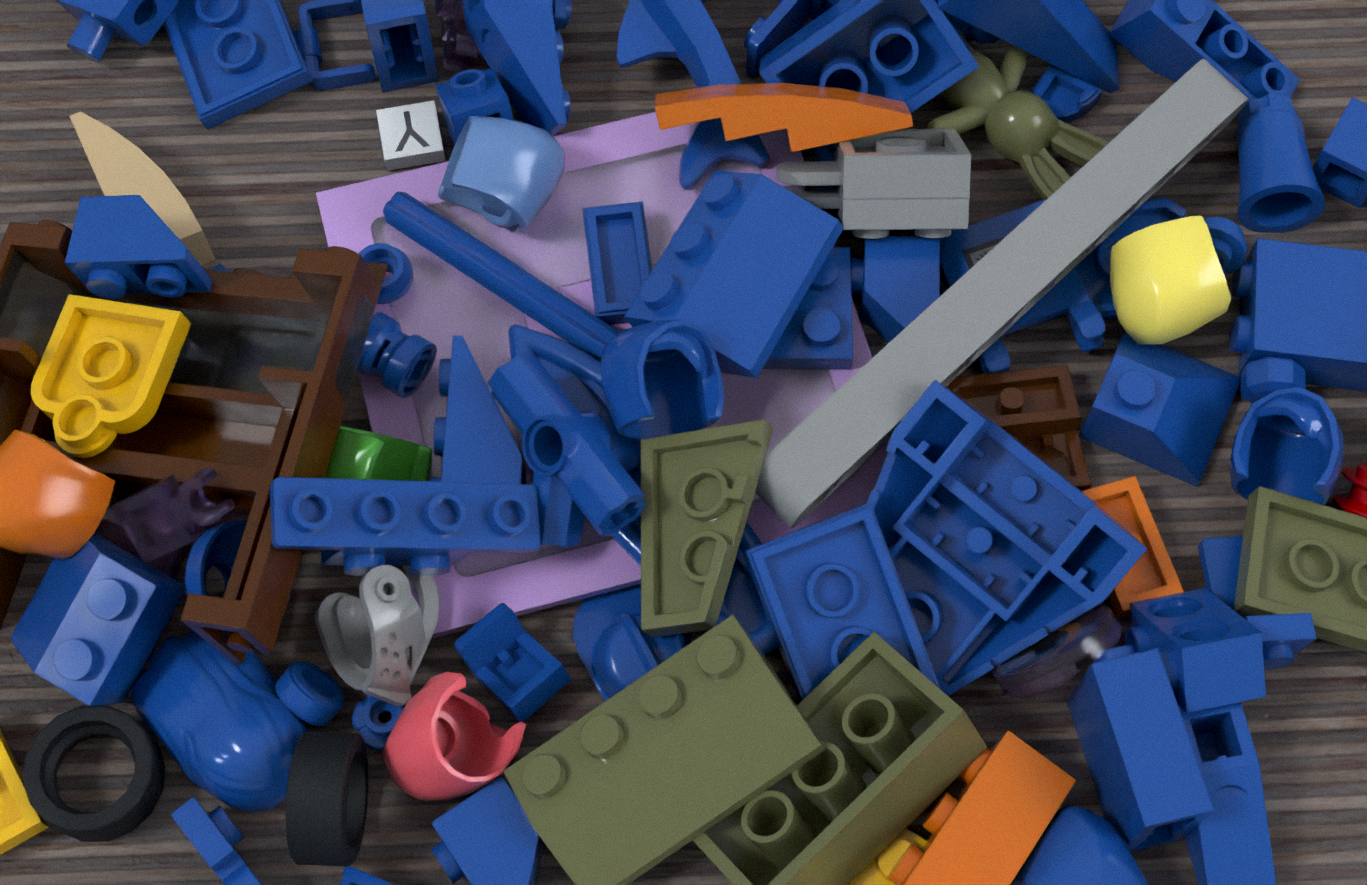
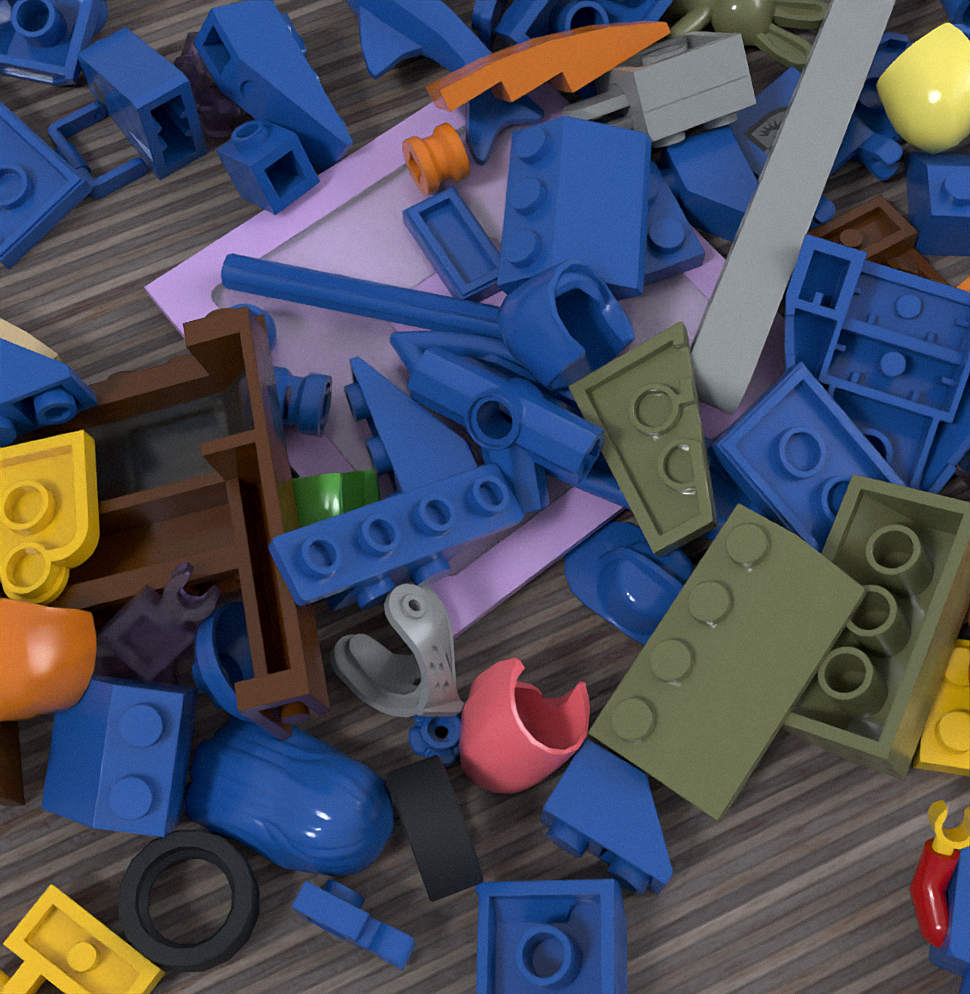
camera: 25 degrees left, 0 degrees up
(310, 693) = (363, 739): blue tile -> none
(410, 135) = (207, 207): white tile -> none
(503, 171) = (316, 201): medium blue piece -> none
(511, 663) = (543, 637): blue bracket -> none
(637, 168) = (436, 158): none -> orange wheel

